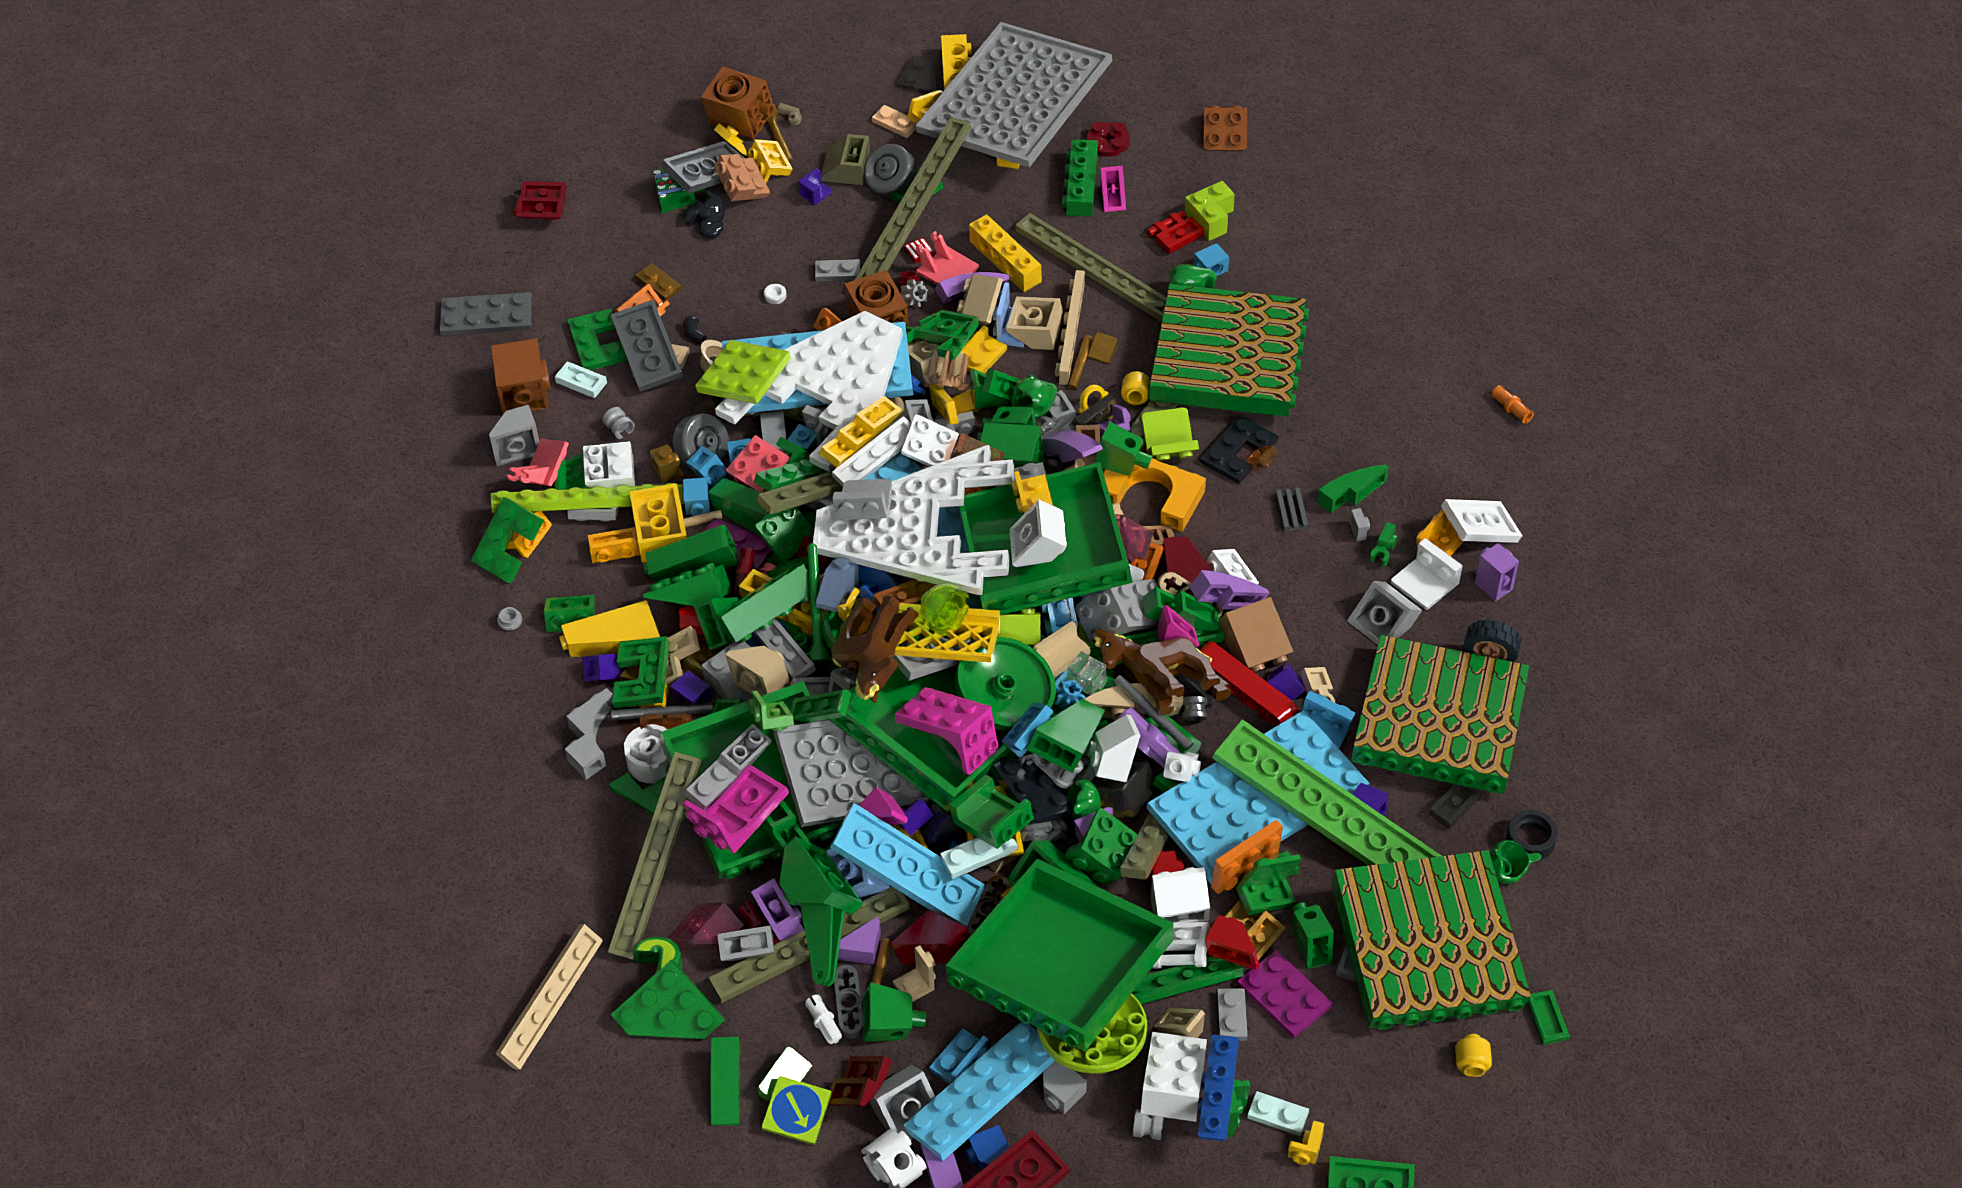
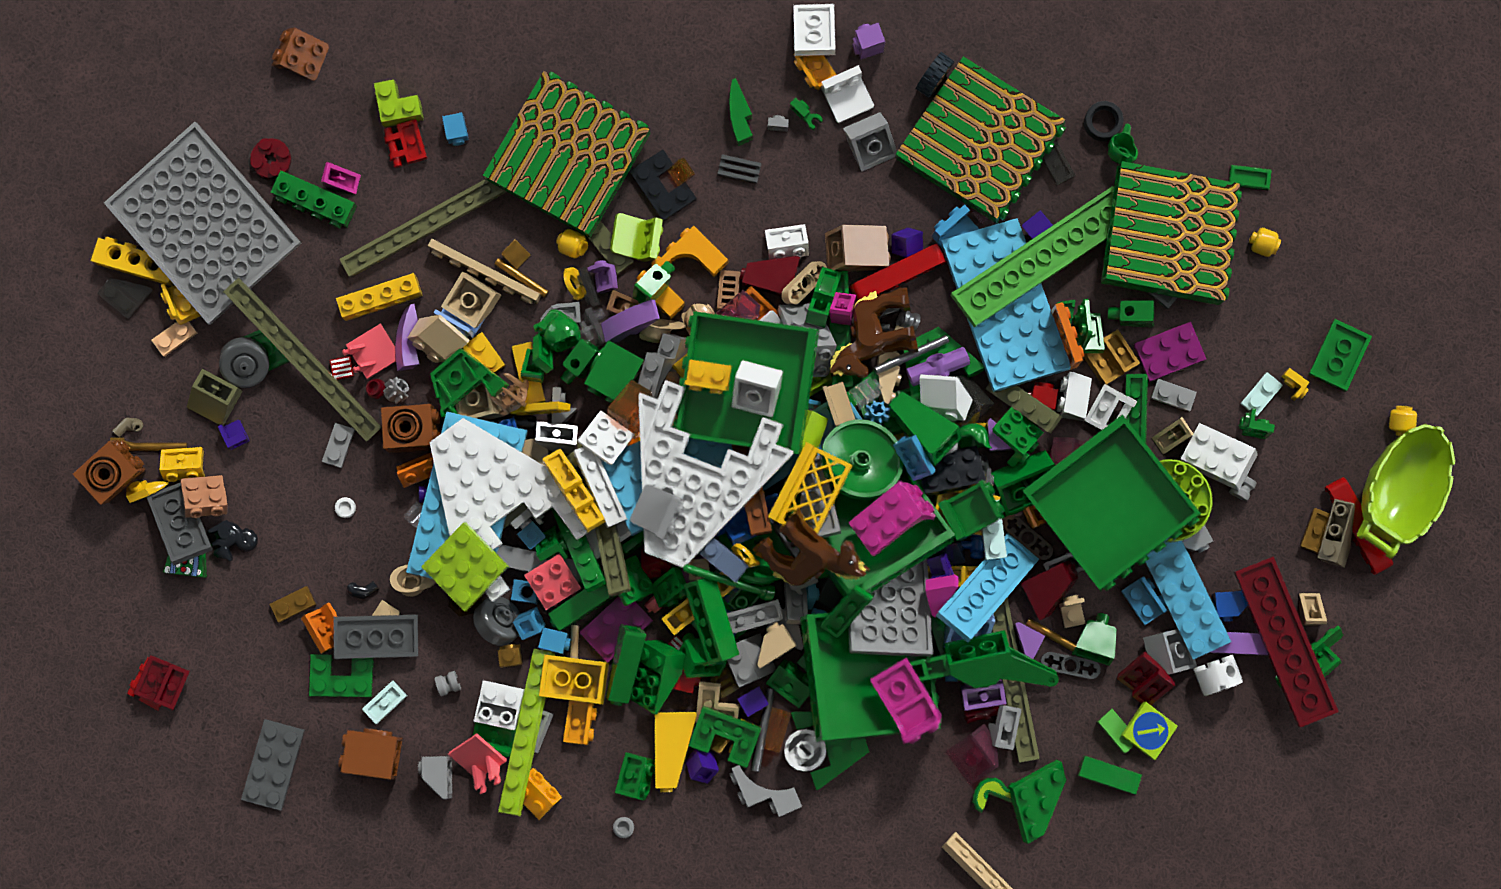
camera: 70 degrees left, 30 degrees up
(491, 553) = (535, 805): green plate -> none
(654, 856) = (914, 773): olive plate -> none
(727, 767) = (867, 698): light grey slope -> none
(744, 568) = (651, 625): dark red pin -> none
(770, 715) = (838, 650): bright green bracket -> none
(823, 1019) = (1081, 688): white axle -> none
(944, 608) = (797, 487): clear neon green cylinder -> none
(1181, 766) = (974, 354): white bracket -> none
(1192, 276) = (476, 154): green piece -> none
(1218, 1088) = (1252, 432): blue bracket -> none
(1226, 590) = (816, 254): medium lavender slope -> none
(1231, 942) = (1126, 373): red slope -> none
(1317, 681) = (916, 219): tan plate -> none

